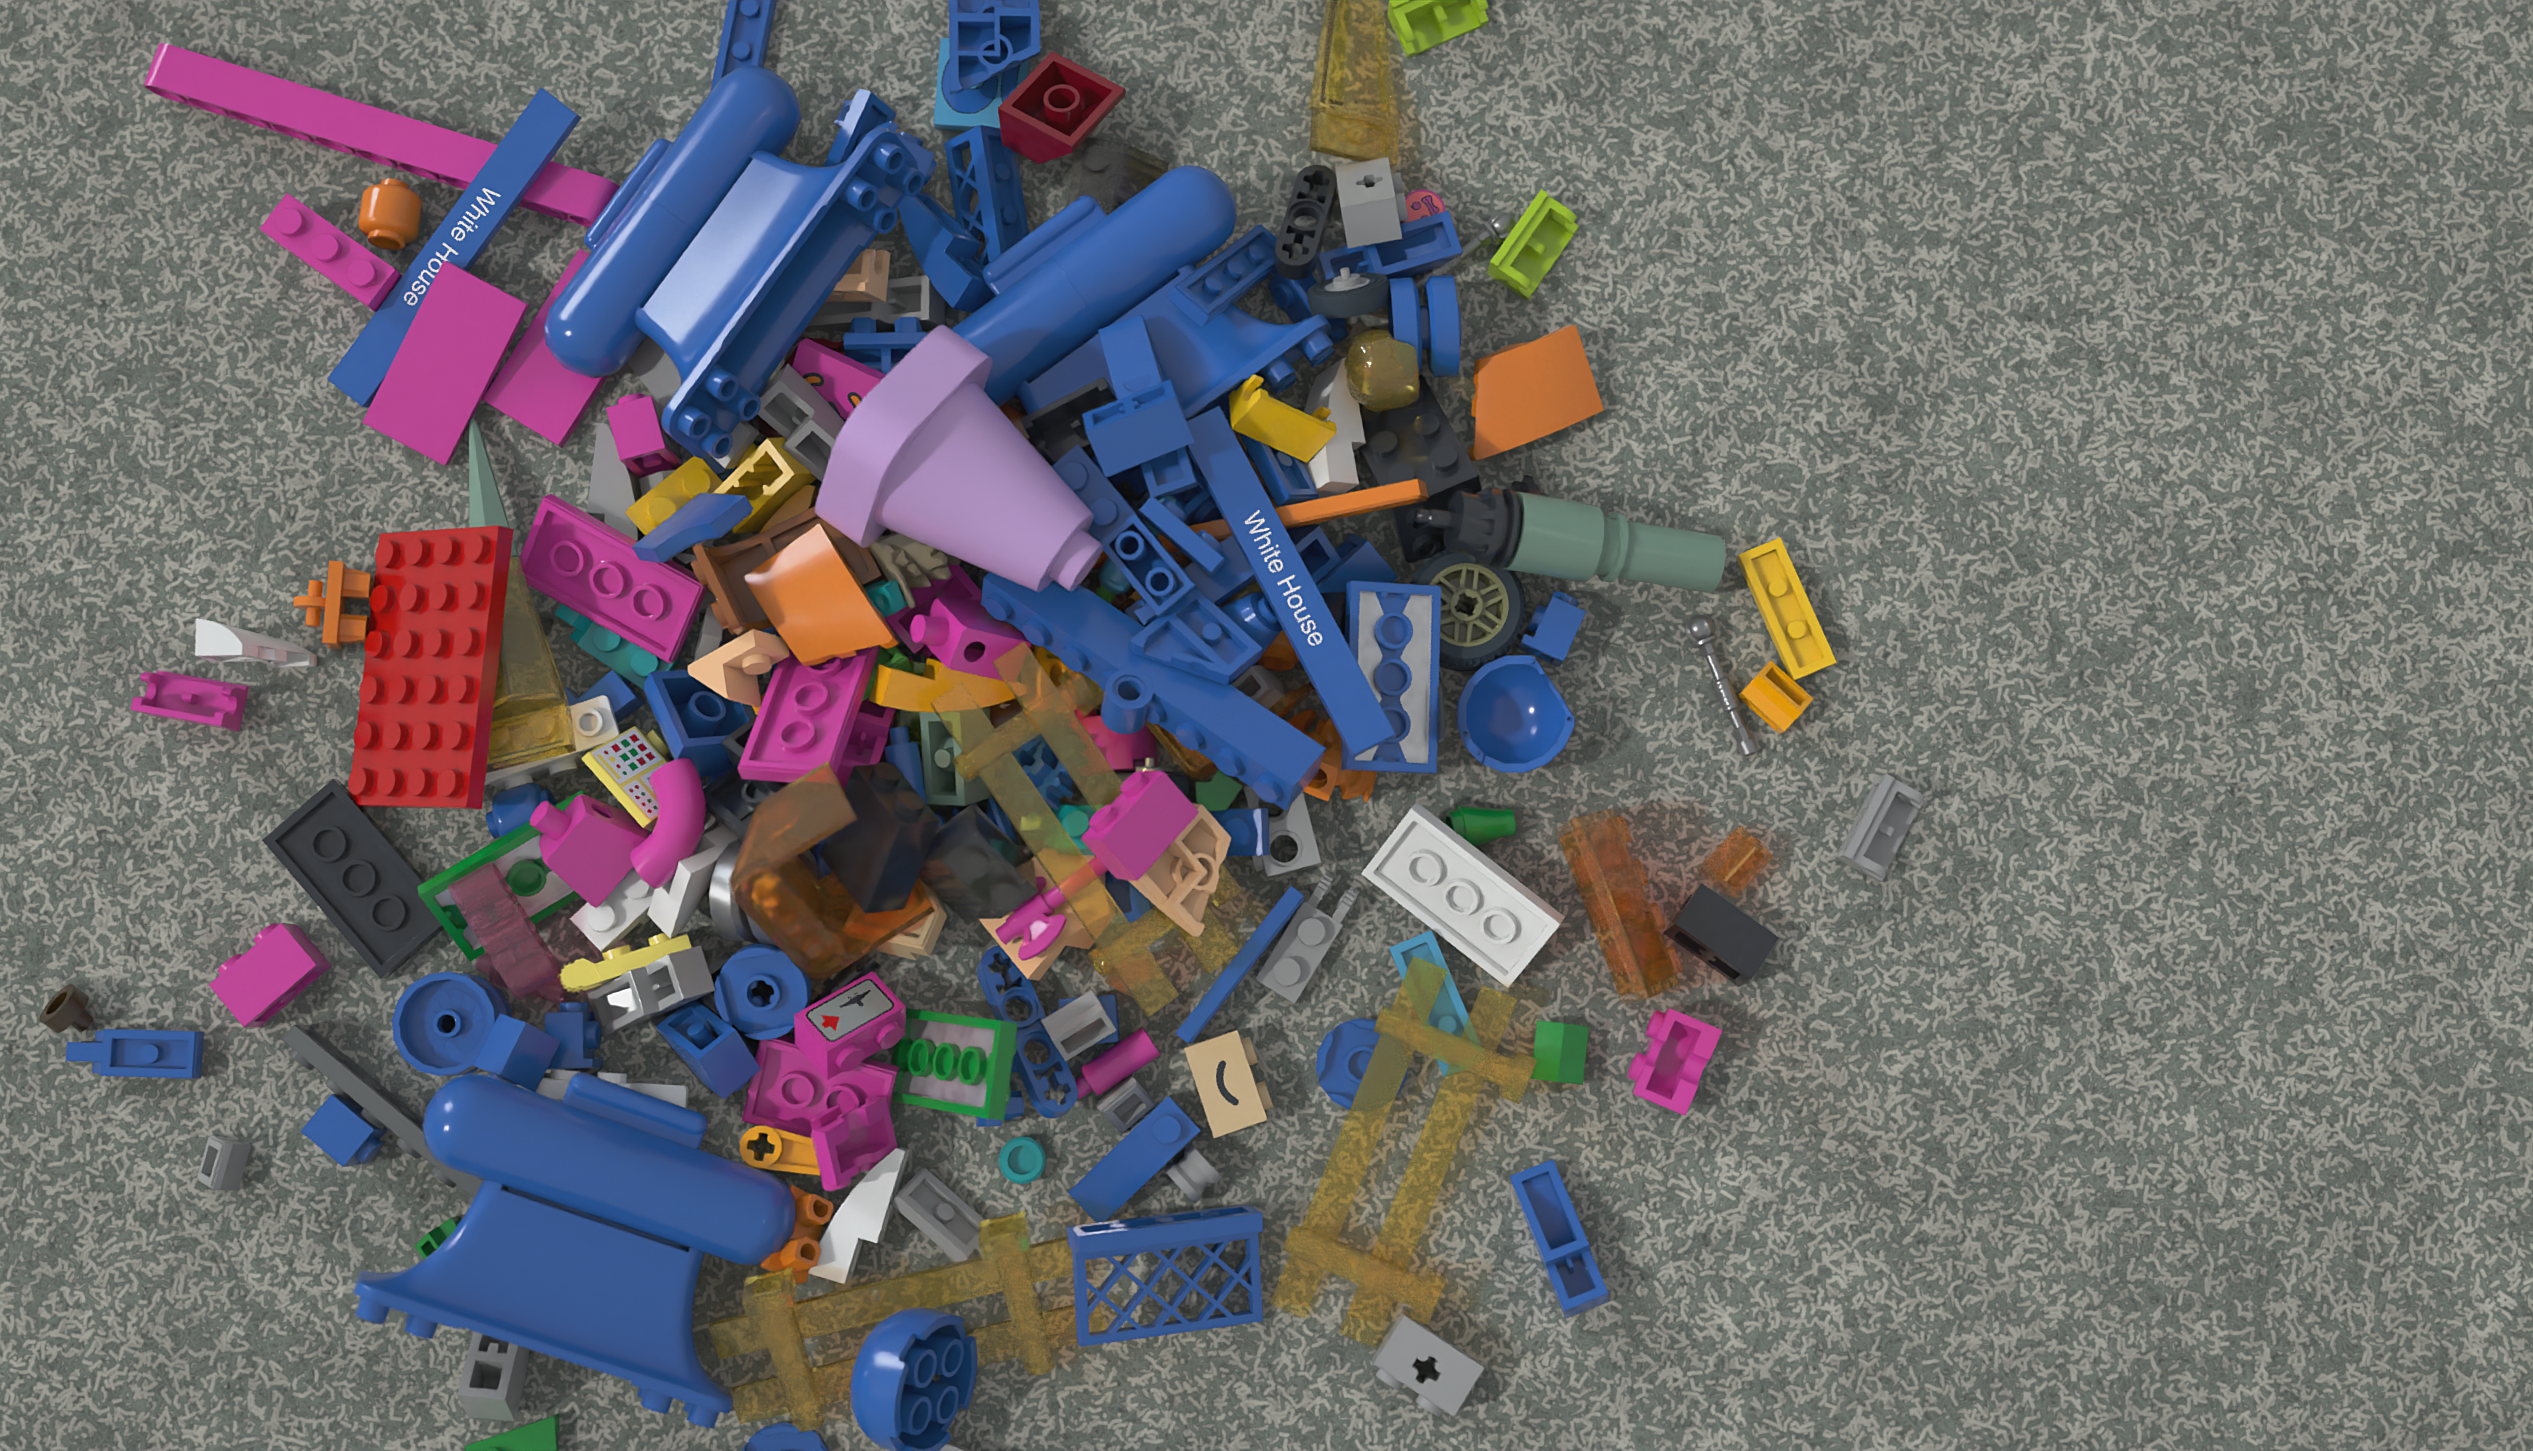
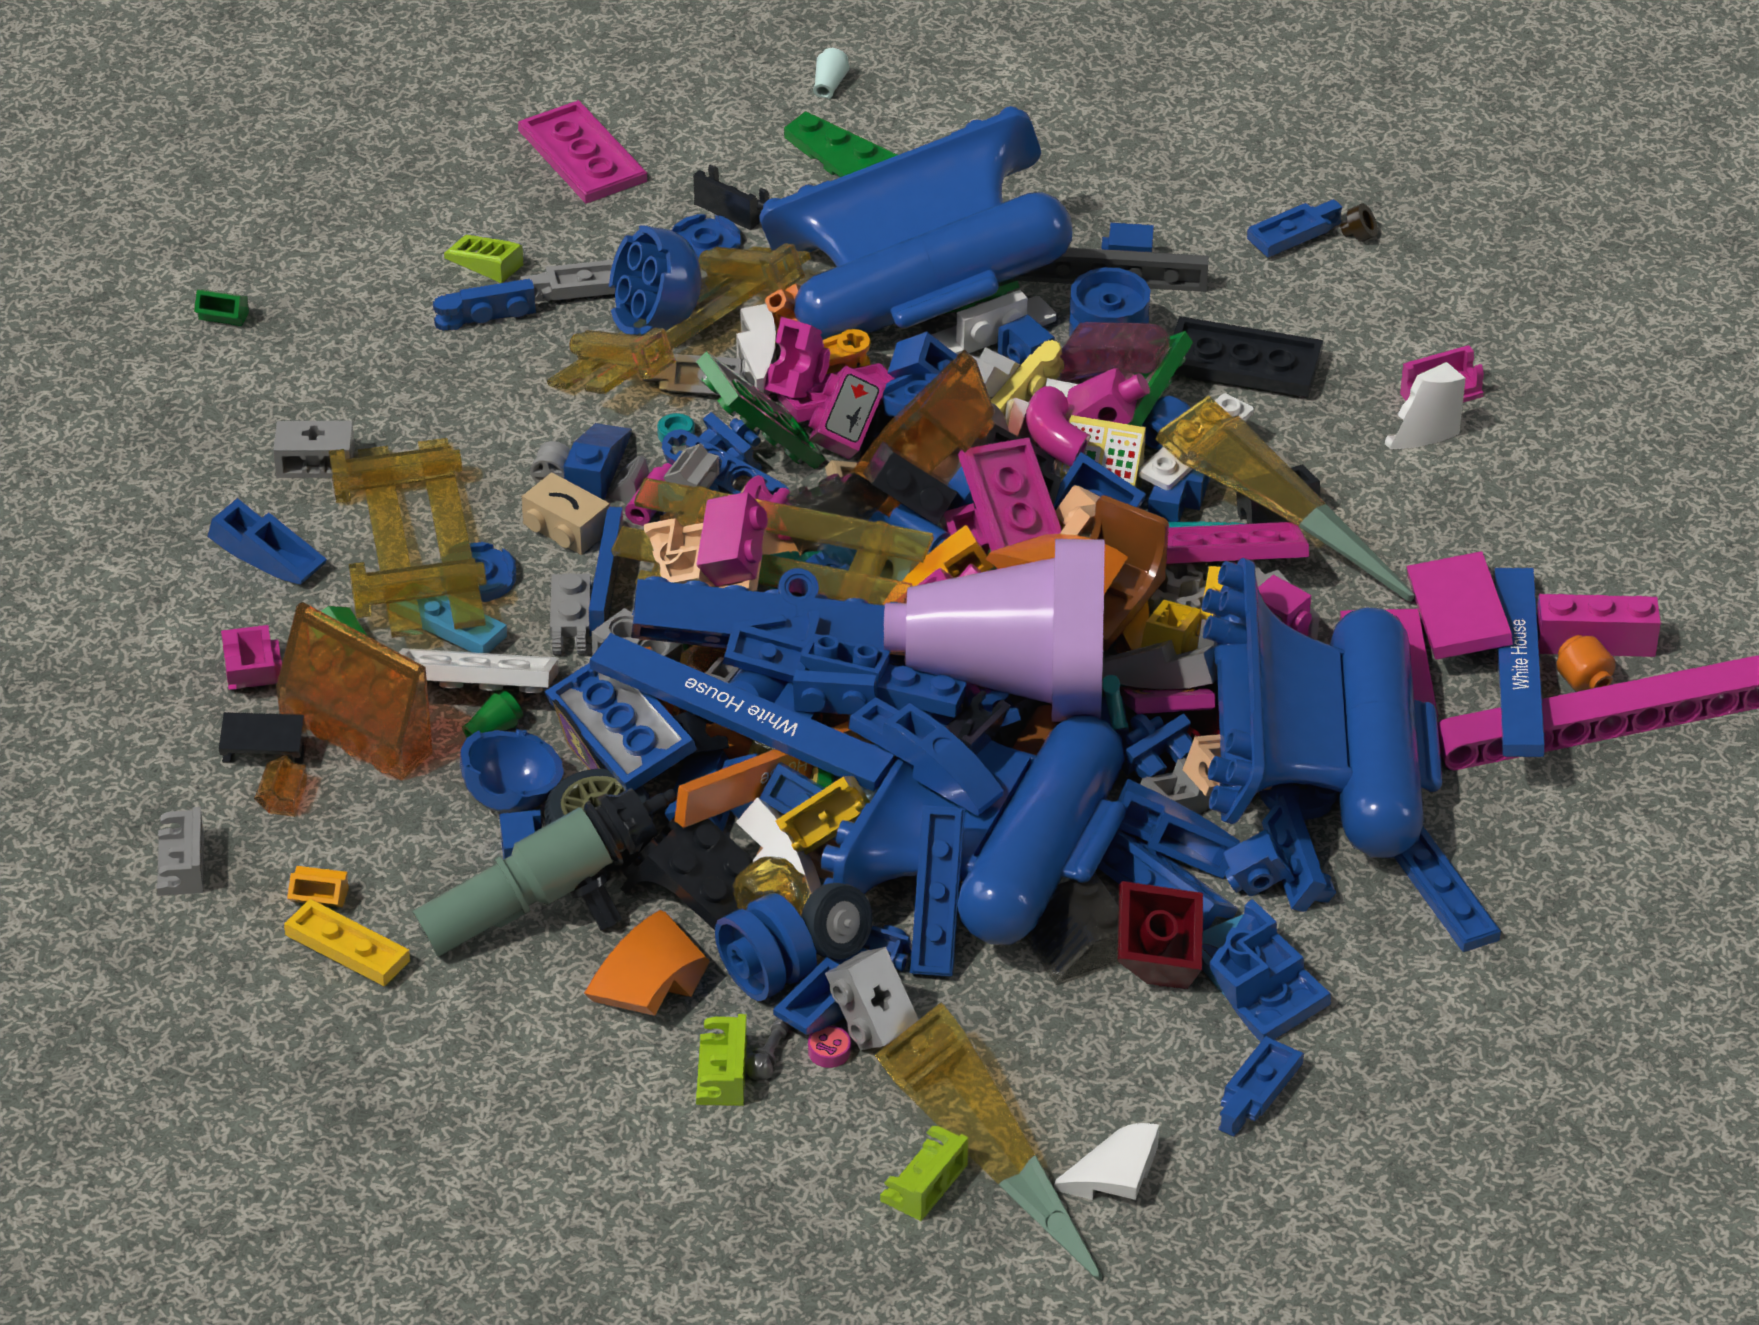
camera: 145 degrees right, 40 degrees down
(223, 1163) = (1190, 209): light grey slope -> none
(269, 974) = (1252, 290): dark pink brick -> none
(337, 626) = (1403, 461): orange hips -> none
(431, 668) = (1298, 442): red plate -> none
(517, 1053) = (1049, 299): blue brick -> none
(699, 520) = (1188, 564): blue tile -> none
(1137, 428) = (917, 706): blue hinge -> none
(1162, 1233) = (539, 417): blue fence -> none
(1312, 237) = (916, 957): black beam -> none
(1701, 631) = (400, 900): flat silver piece -> none

